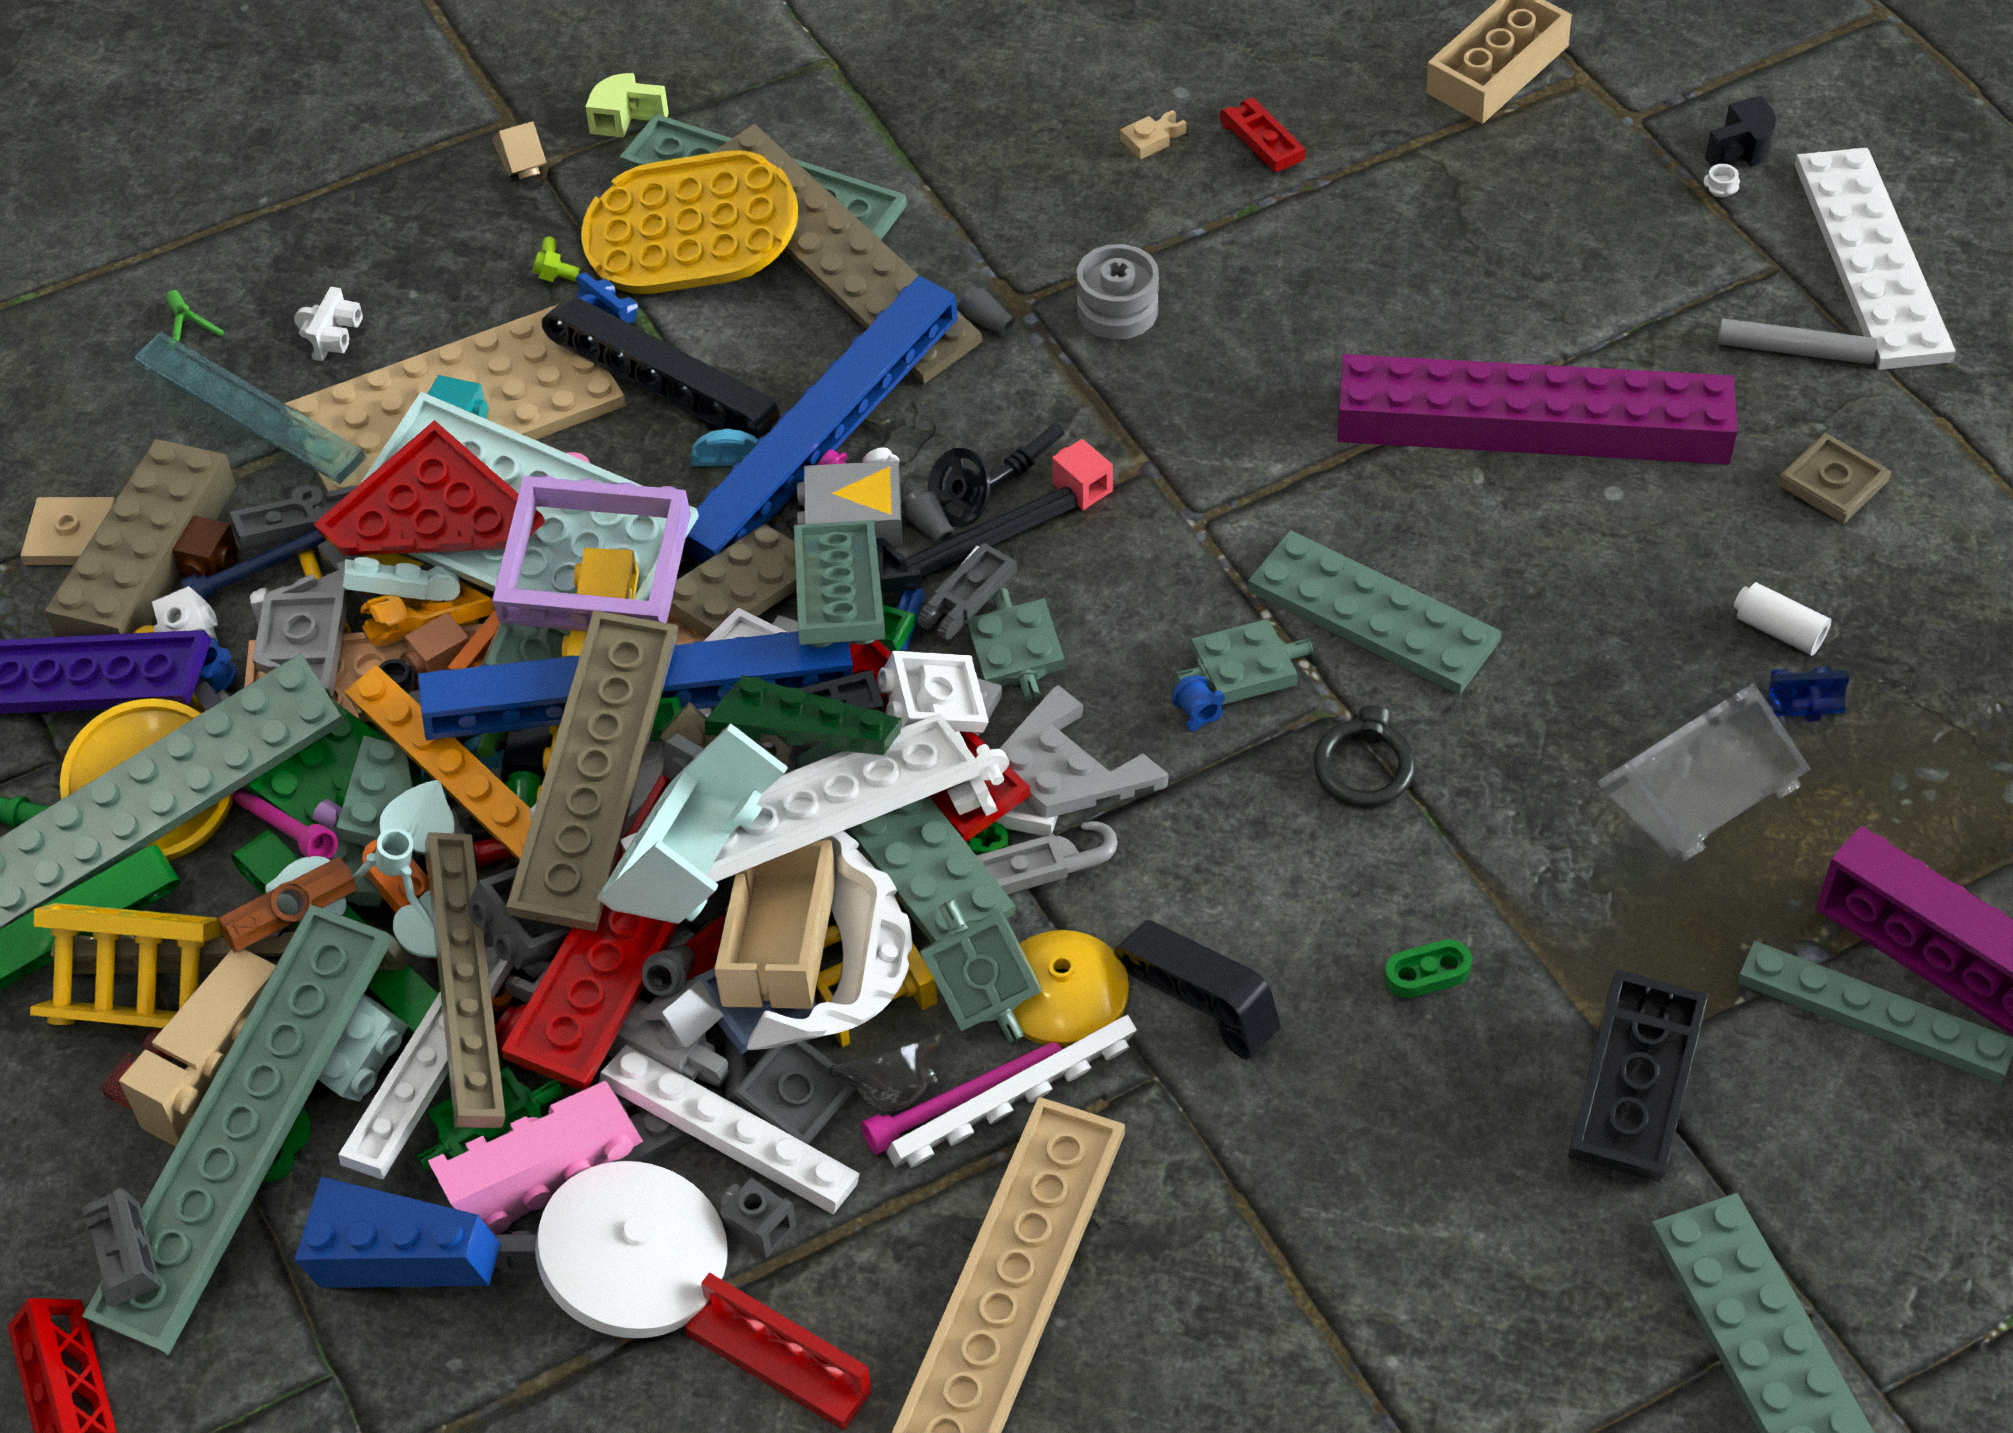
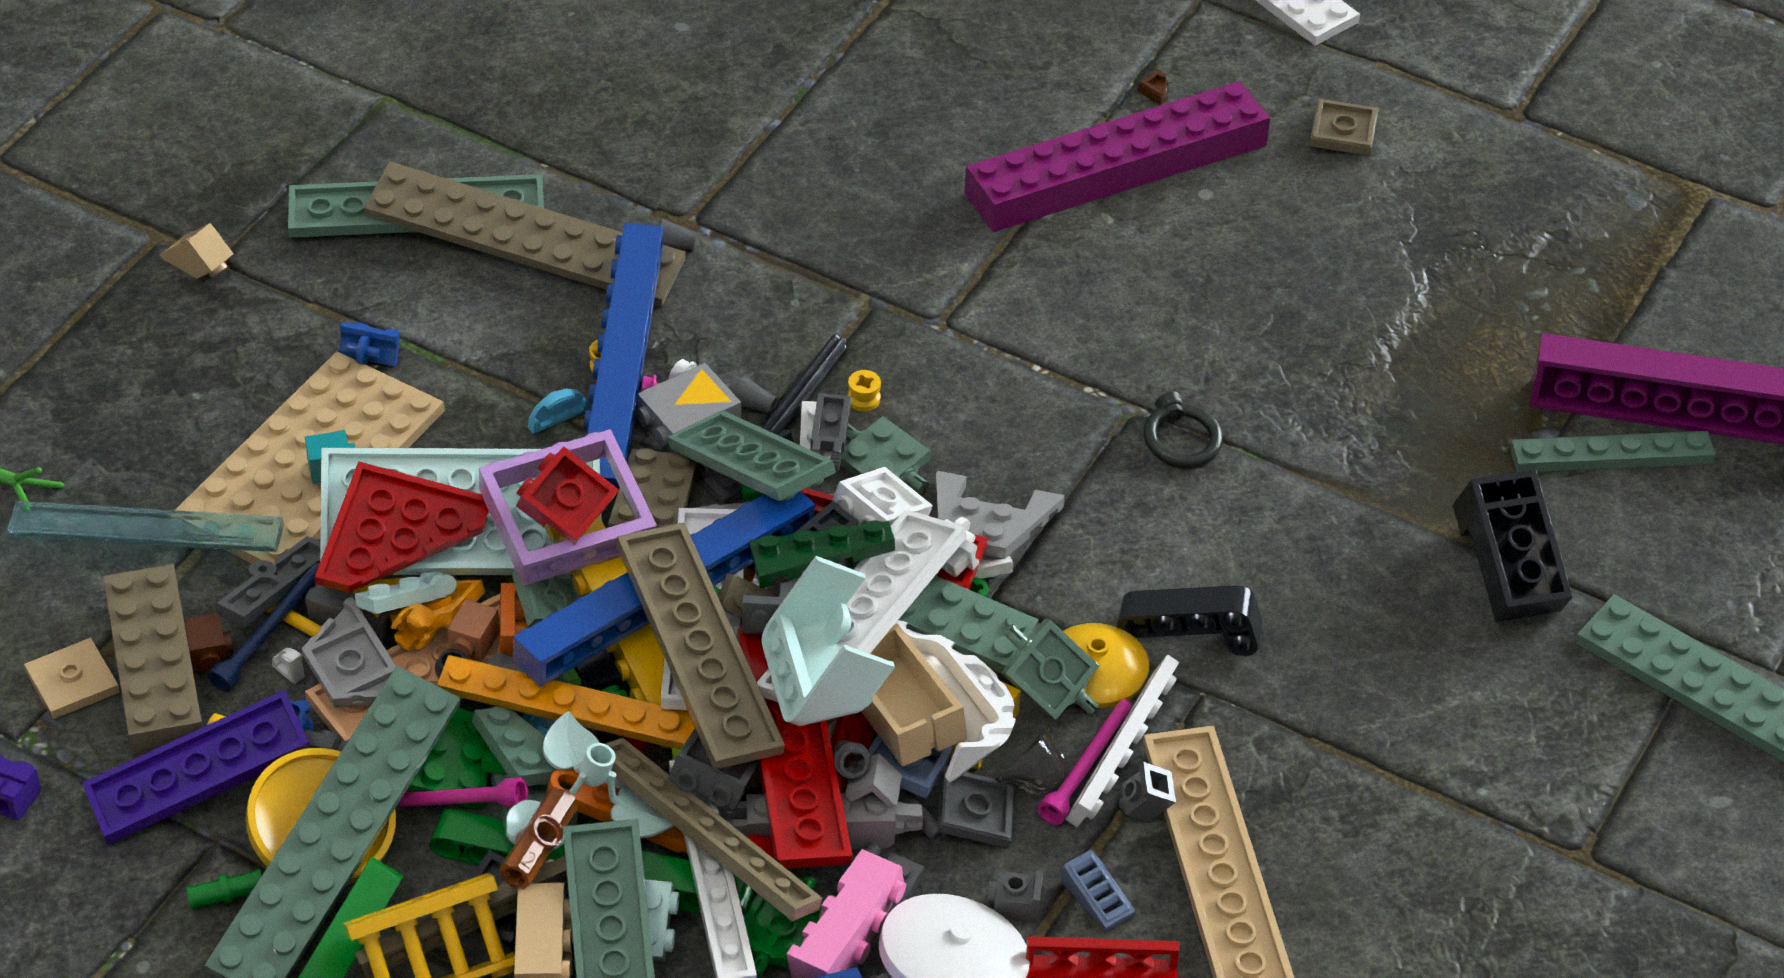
camera: 35 degrees left, 5 degrees down
(184, 612) = (240, 691): white brick -> none
(324, 323) = (141, 444): white hips -> none
(327, 813) = (486, 778): lavender hand -> none
(549, 265) = (299, 329): lime piece -> none
(575, 542) = (565, 495): none -> red plate
(620, 100) = (251, 185): yellowish green brick -> none
(659, 368) = (408, 367): black beam -> none
(690, 222) = (396, 253): yellow plate -> none
(730, 1129) = (960, 849): white plate -> none
(849, 1226) = (1089, 869): none -> sand blue slope
(967, 487) = (766, 358): black dish -> none
(979, 1163) = (1140, 793): none -> dark grey brick
(1046, 859) = (1026, 583): light grey plate -> none
(1051, 561) = (864, 389): none -> yellow wheel
(1084, 472) = (838, 318): coral brick -> none
(1117, 291) = (762, 184): light grey wheel -> none
(1151, 136) = (687, 66): tan plate -> none
(1198, 701) = (1042, 440): blue brick -> none
(1246, 660) = (1050, 403): sand green plate -> none
(1263, 134) = (772, 34): red plate -> none
(1375, 612) = (1110, 334): sand green plate -> none
(1425, 968) = (1321, 550): green plate -> none
(1646, 347) = (1154, 87): none -> reddish brown tile
(1707, 773) = (1407, 346): clear windscreen -> none
(1782, 618) = (1380, 230): white brick -> none
(1797, 341) = (1252, 45): light grey piece -> none
(1808, 693) = (1431, 272): clear blue hips -> none

